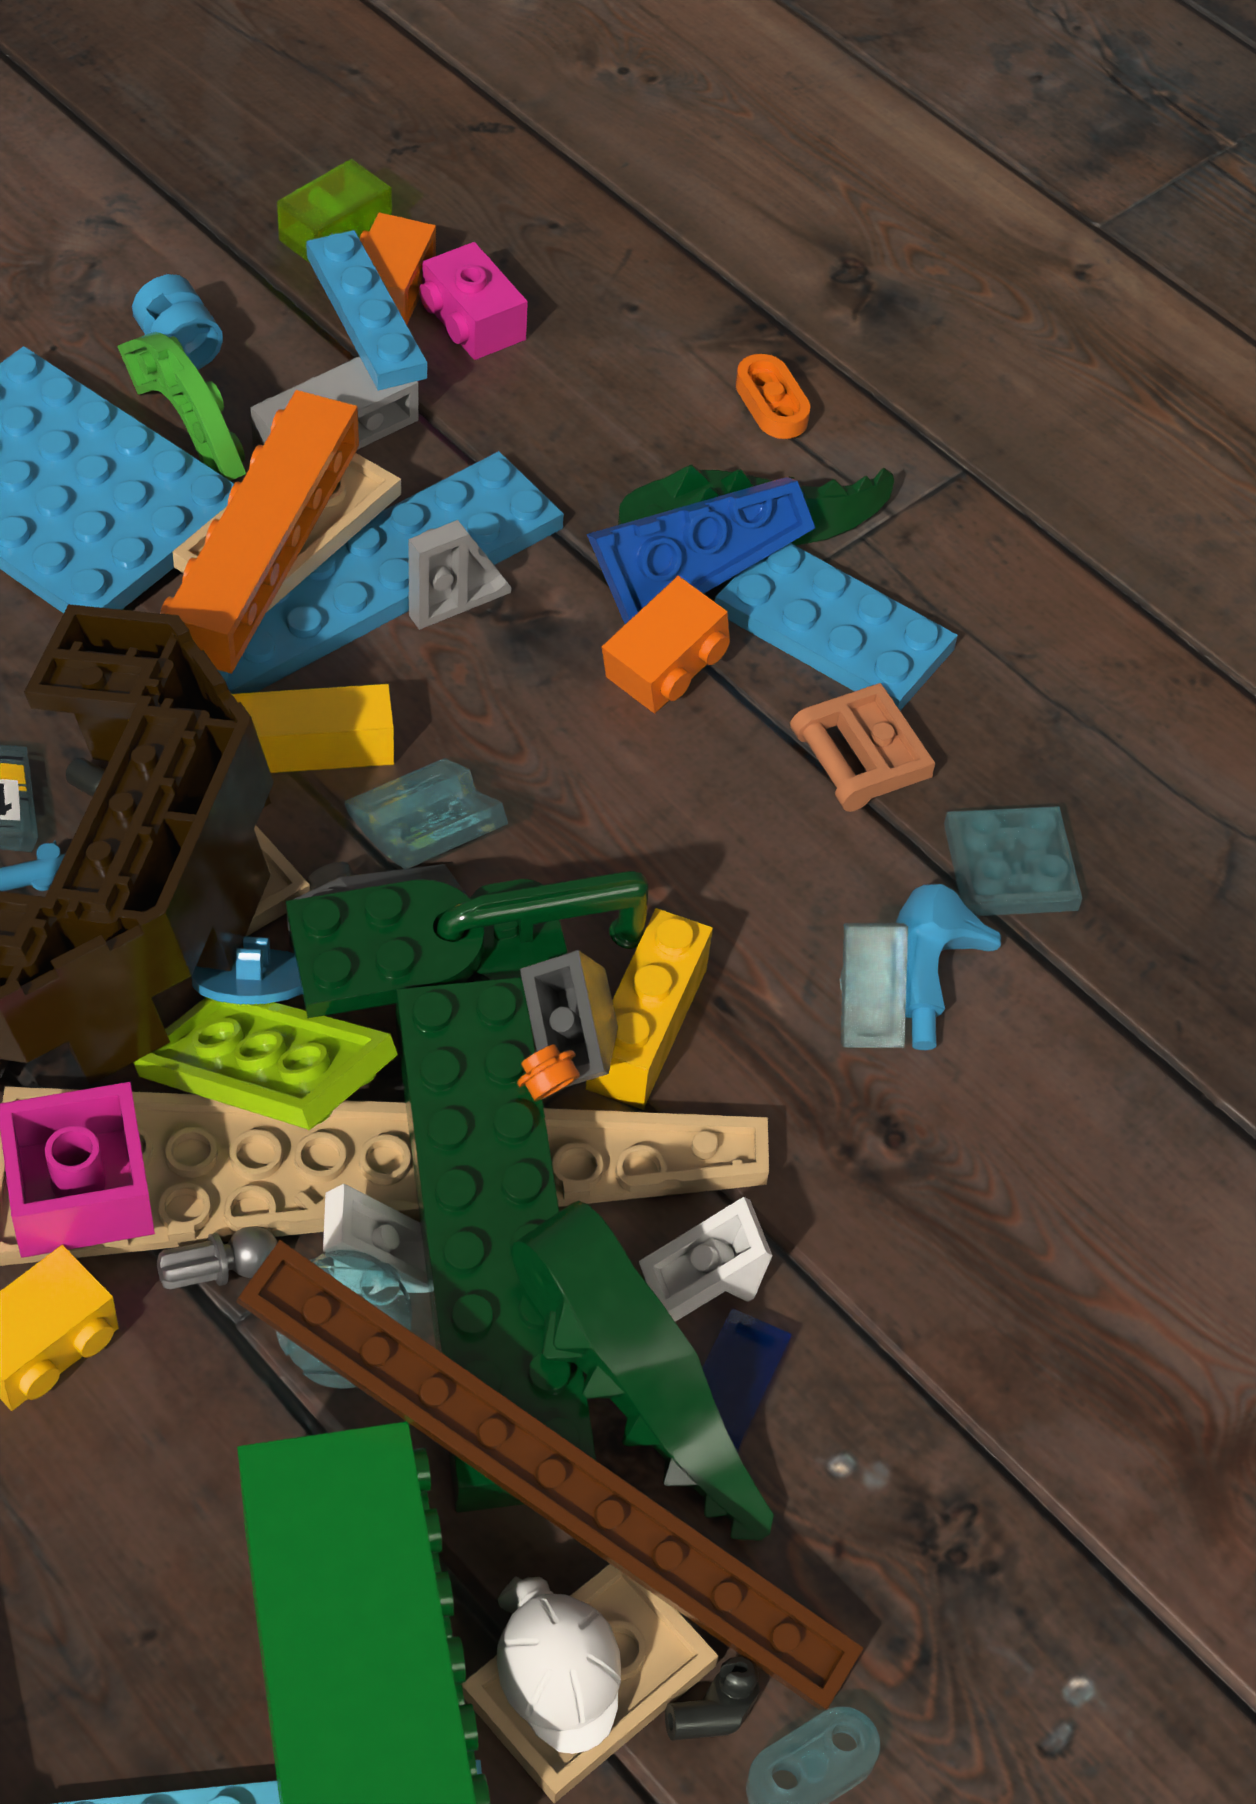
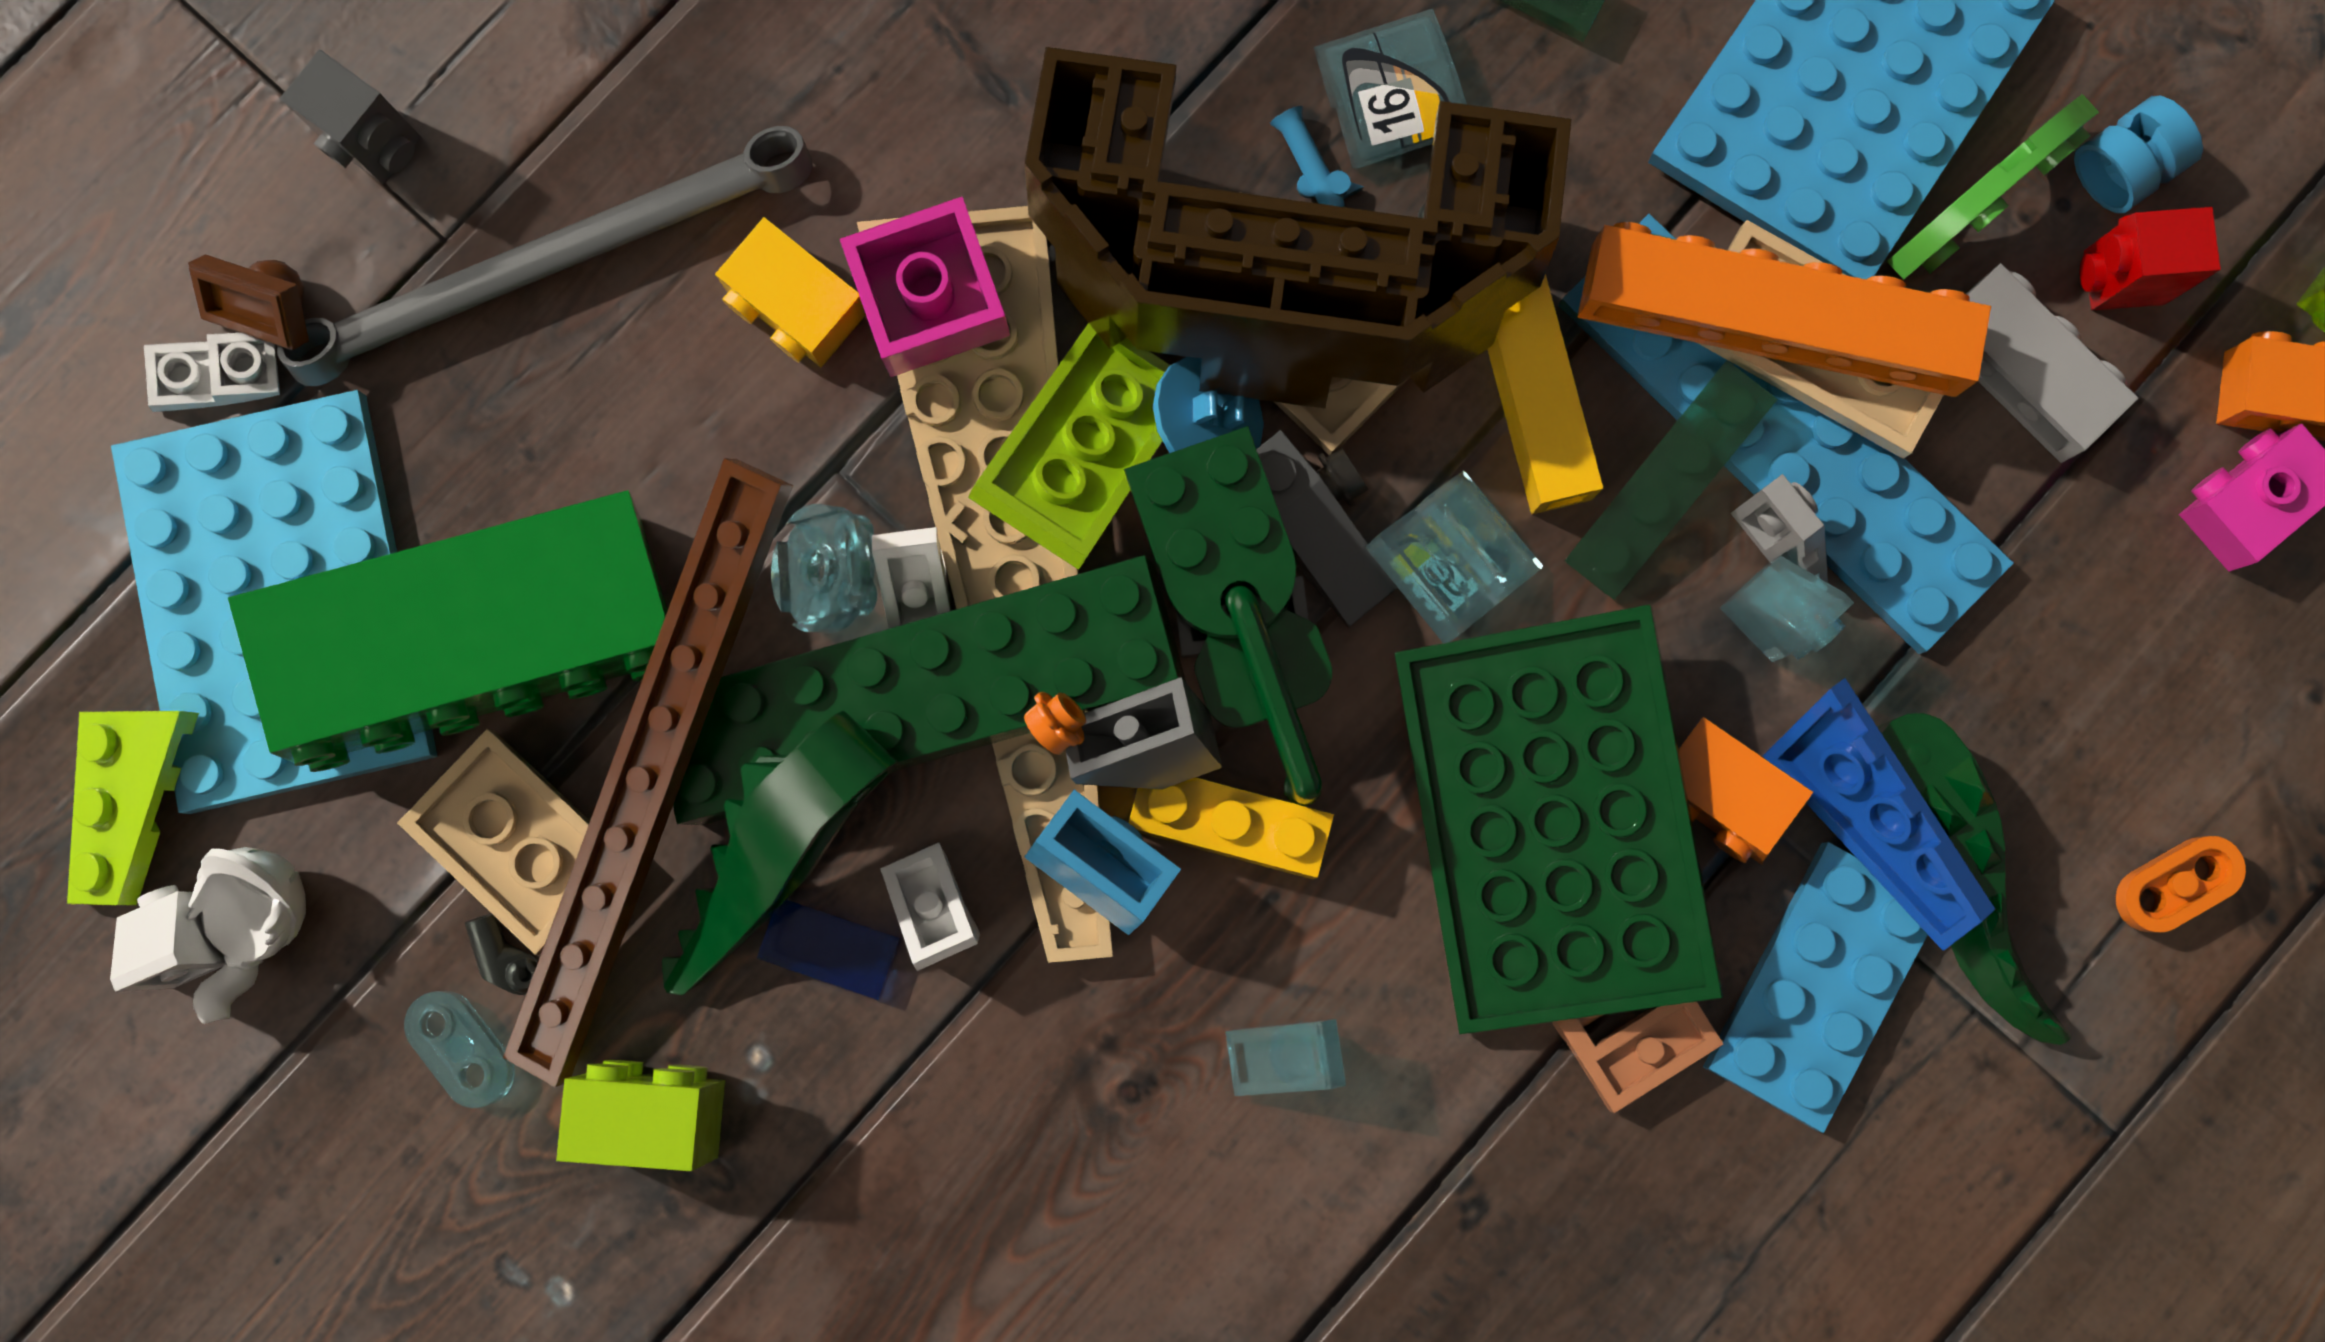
camera: 90 degrees right, 30 degrees up
(213, 1259) = (900, 466): flat silver axle -> none
(268, 321) = (2150, 258): none -> red brick
(366, 310) = (2191, 367): dark azure plate -> none
(388, 651) = (1670, 480): none -> clear green plate
(517, 582) = (1787, 610): none -> clear light blue slope
(558, 1665) = (501, 805): white piece -> none
(678, 760) = (1558, 822): none -> dark green plate
(681, 1086) = (1102, 862): none -> dark azure brick
(901, 1543) = (641, 1118): none -> lime brick
(936, 923) = (1376, 1108): dark azure animal -> none
(1012, 861) = (1506, 1207): clear light blue tile -> none

